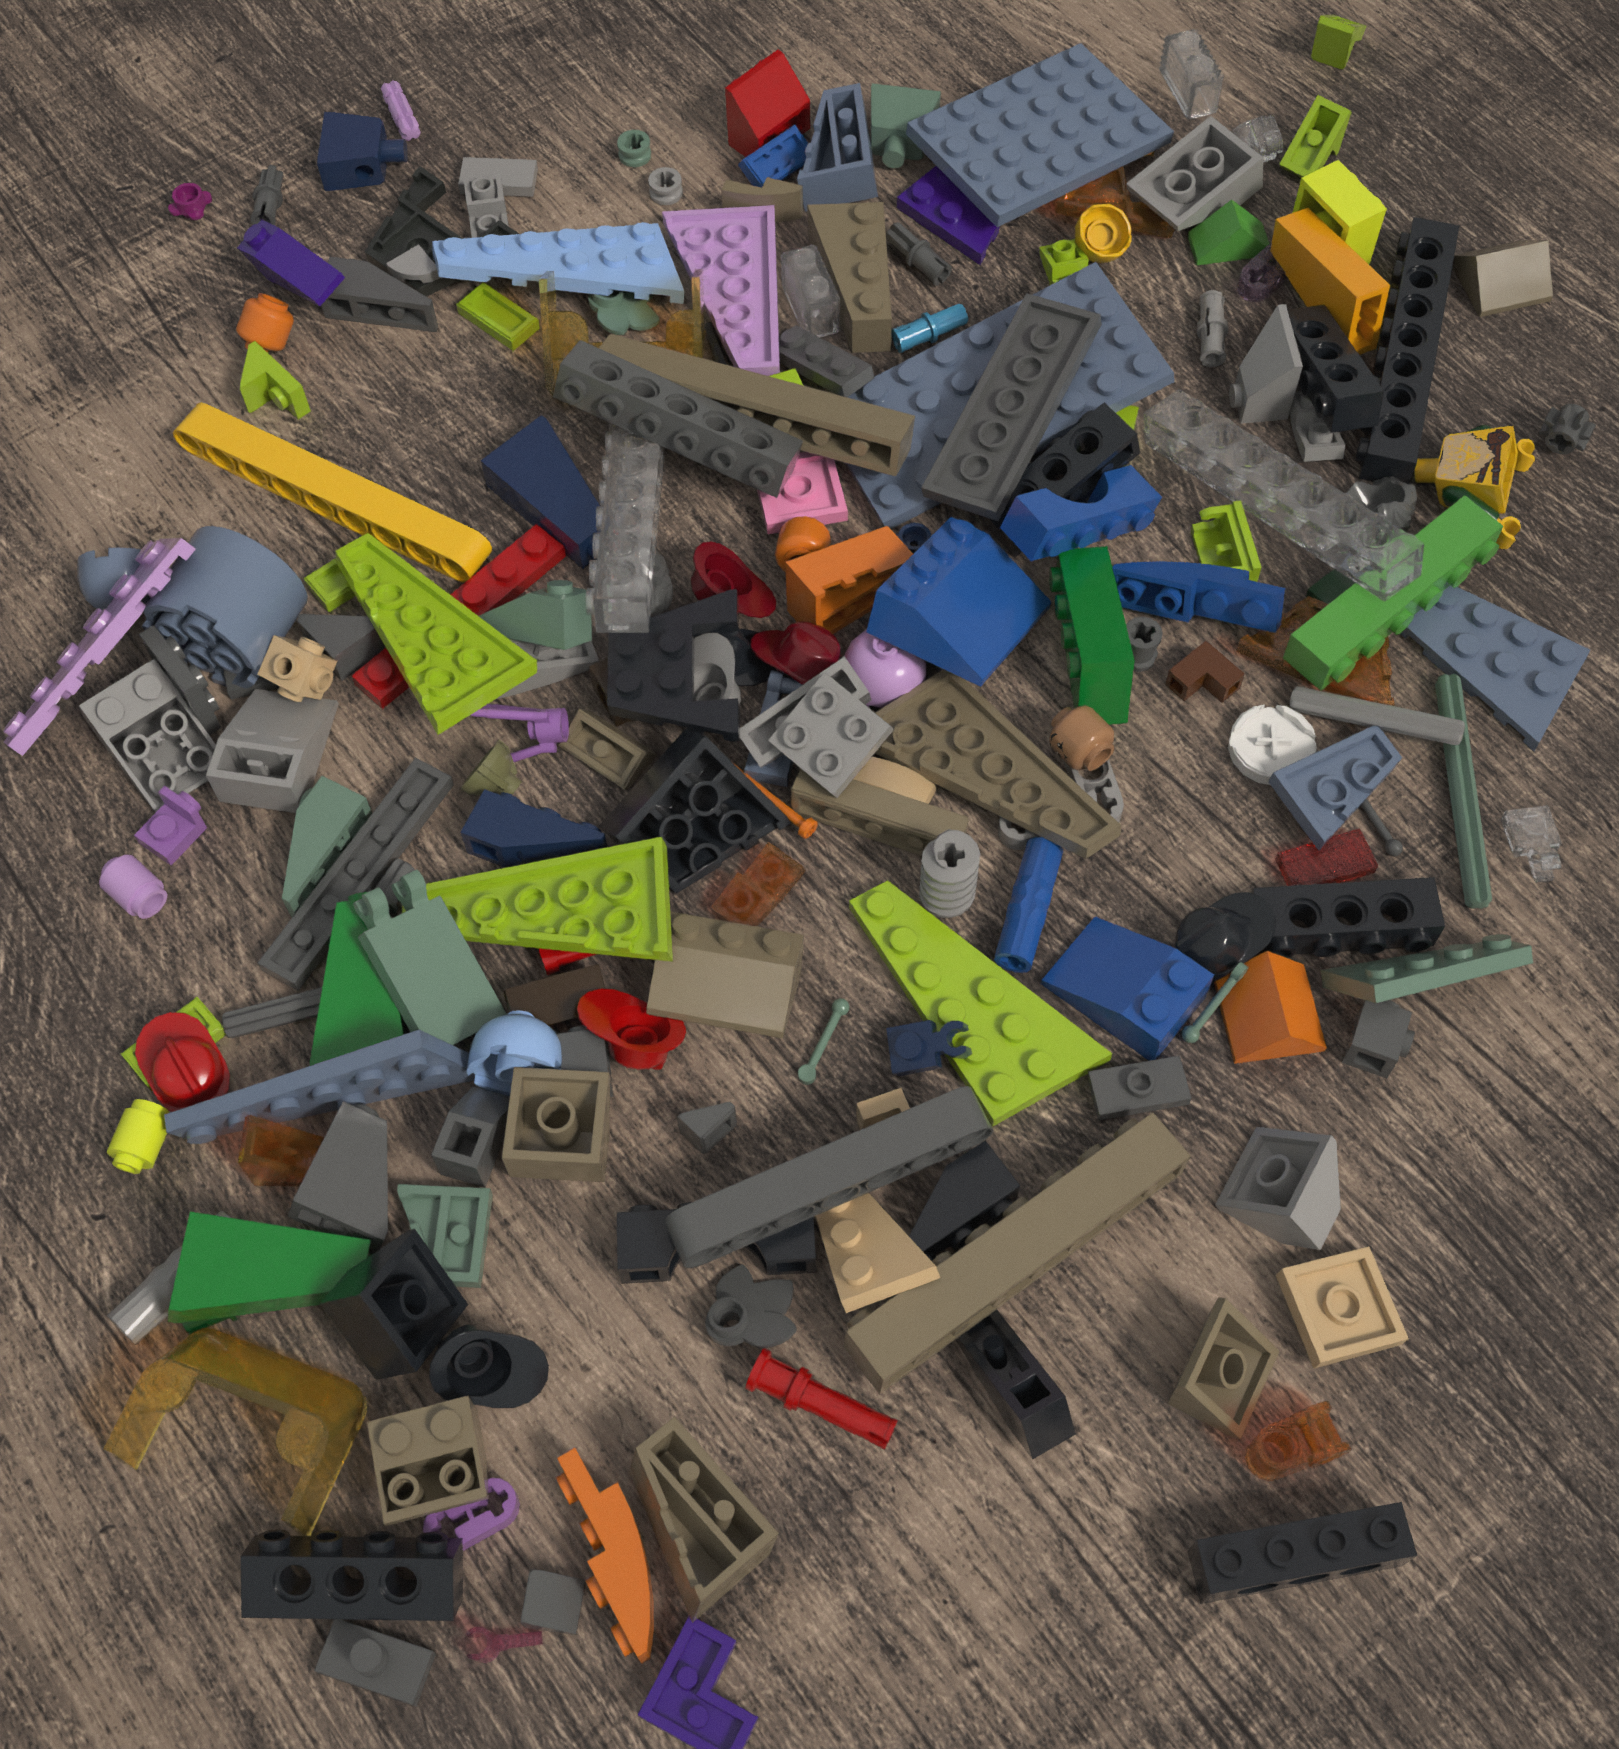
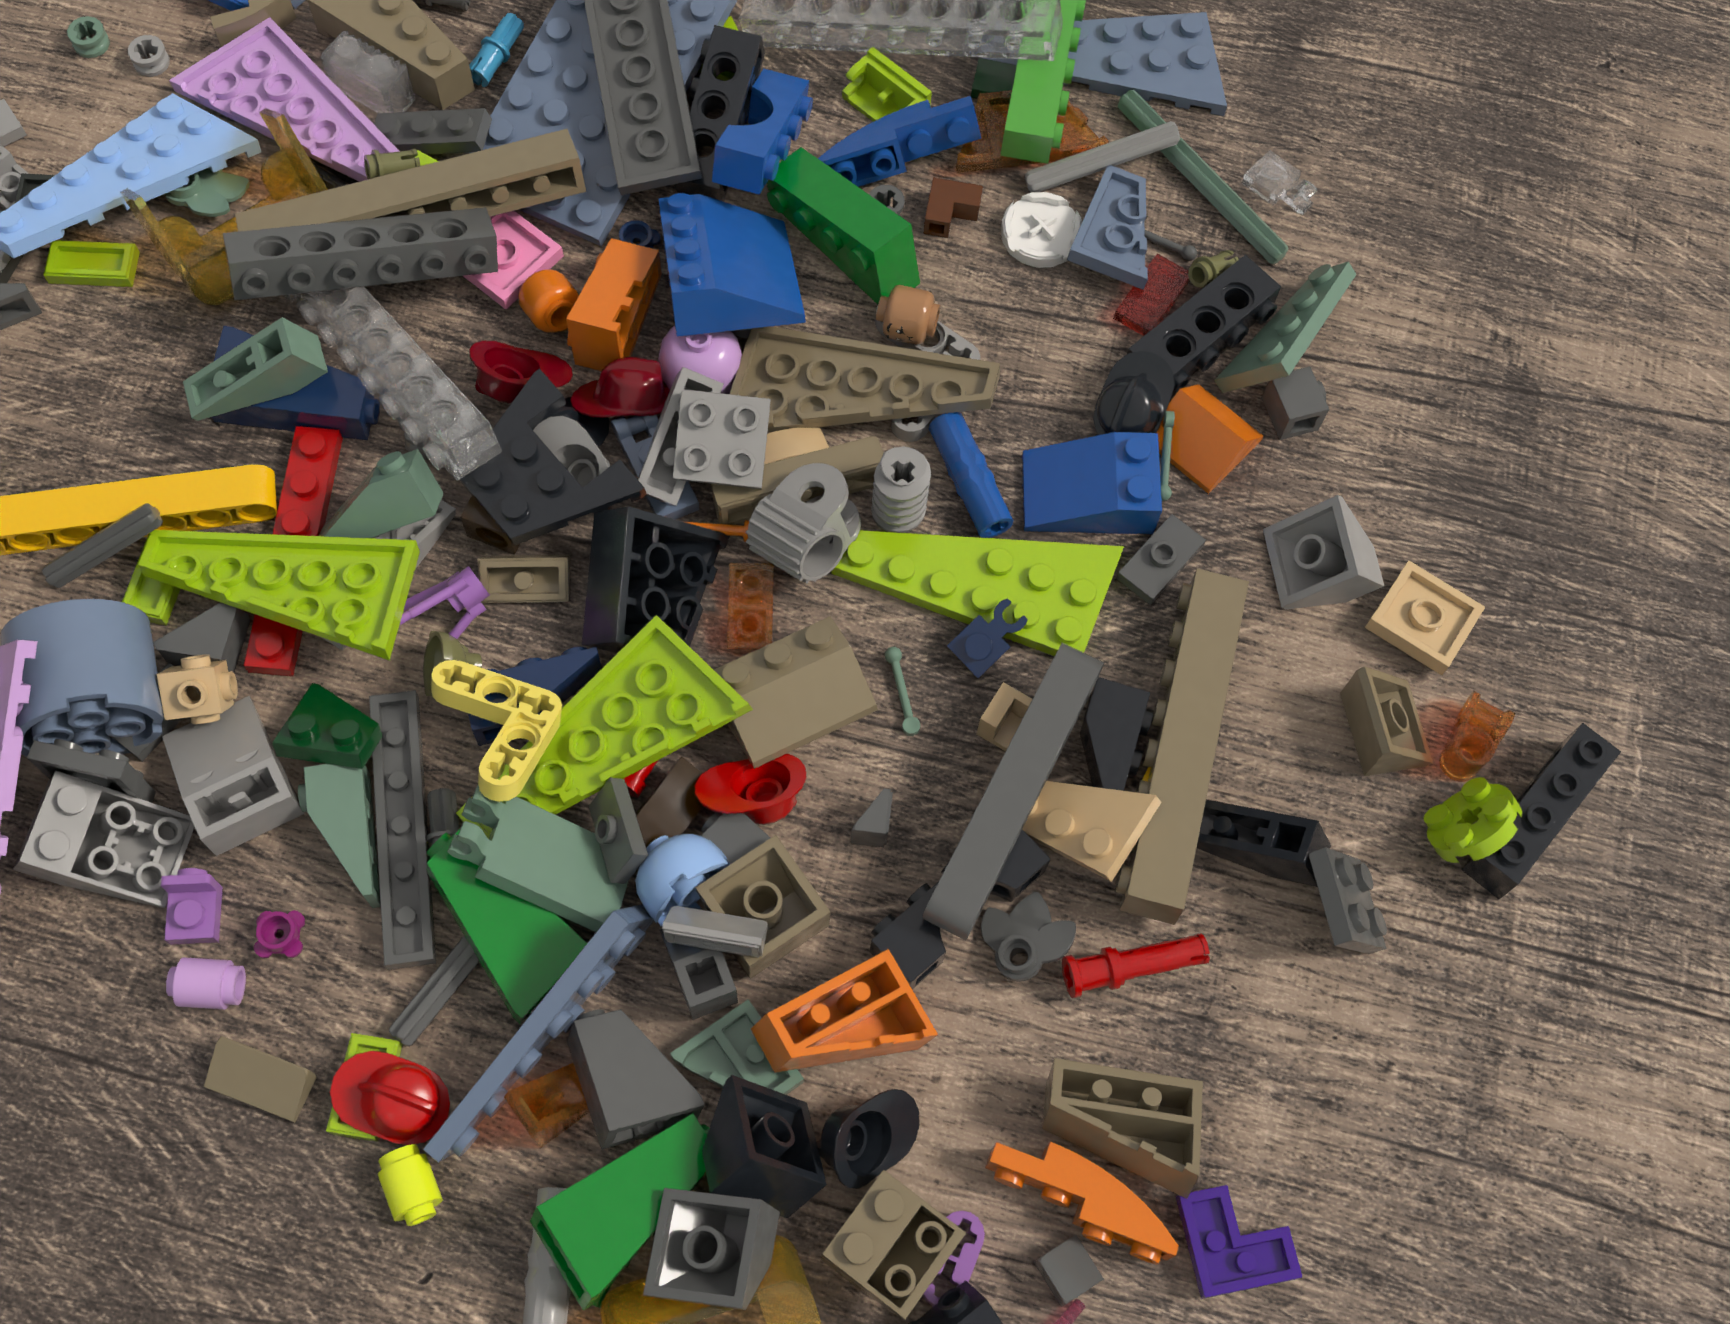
camera: 45 degrees left, 5 degrees up
(111, 982) = (259, 1079): none -> dark tan slope
(205, 879) = (269, 923): none -> magenta plate
(287, 1348) = (710, 1248): none -> dark grey slope
(328, 523) = (102, 545): none -> dark grey axle
(361, 762) = (327, 731): none -> dark green wing
(489, 846) = (516, 722): none -> light yellow beam
(496, 1109) = (715, 931): none -> light grey slope
(498, 983) = (618, 830): none -> dark grey plate
(534, 461) = (258, 370): none -> sand green slope
(543, 1256) = (846, 1019): none -> orange wedge
(756, 362) = (381, 164): none -> olive pin
(840, 858) = (806, 536): none -> light grey piece
(1042, 1489) = (1348, 902): none -> dark grey plate
(1220, 1509) = (1451, 822): none -> lime plate
(1391, 868) = (1206, 269): none -> olive pin

